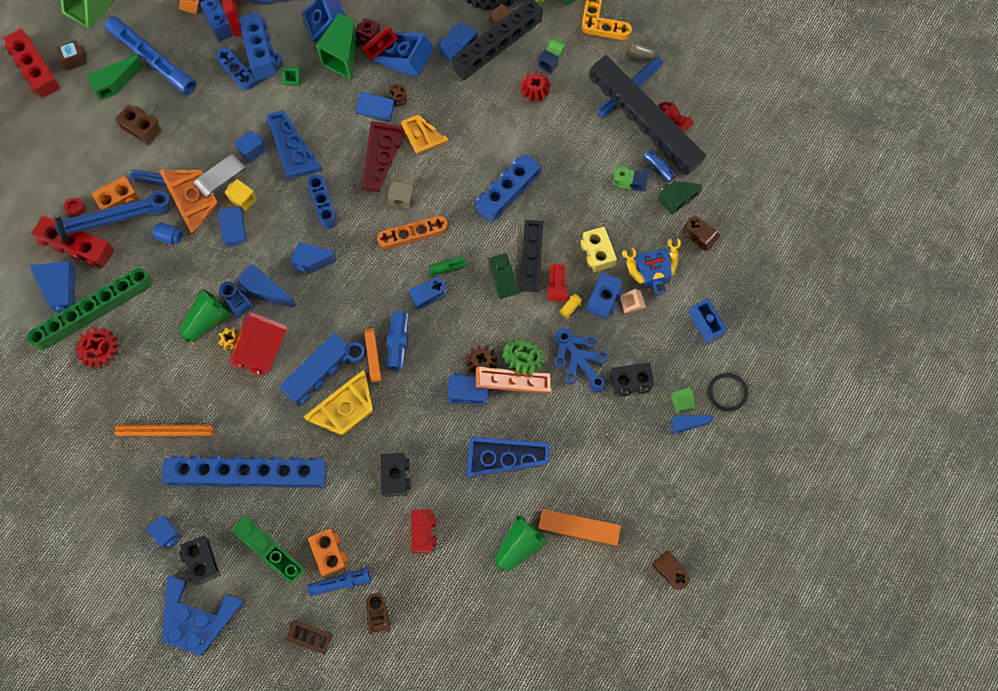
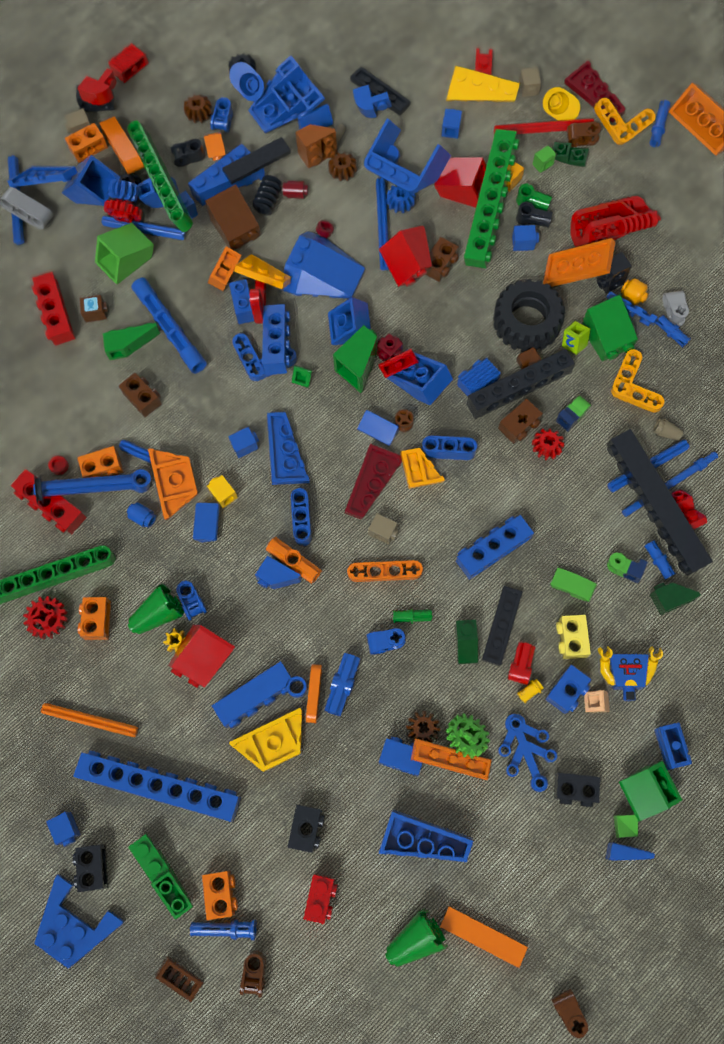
camera: 20 degrees right, 0 degrees up
(56, 283) = (22, 542): blue slope -> none
(150, 335) = (100, 618): none -> orange brick
(219, 175) = (206, 467): light grey beam -> none
(262, 287) = (218, 592): blue slope -> none
(314, 237) = (283, 553): none -> orange piece
(452, 103) = (457, 443): none -> blue beam
(505, 72) = (520, 421): none -> reddish brown brick
(591, 205) = (574, 584): none -> bright green slope
(675, 76) = (699, 465): none -> blue bar
(696, 363) = (650, 791): none -> green slope
(702, 234) = (689, 646): reddish brown piece -> none
(723, 407) = (696, 830): black piece -> none

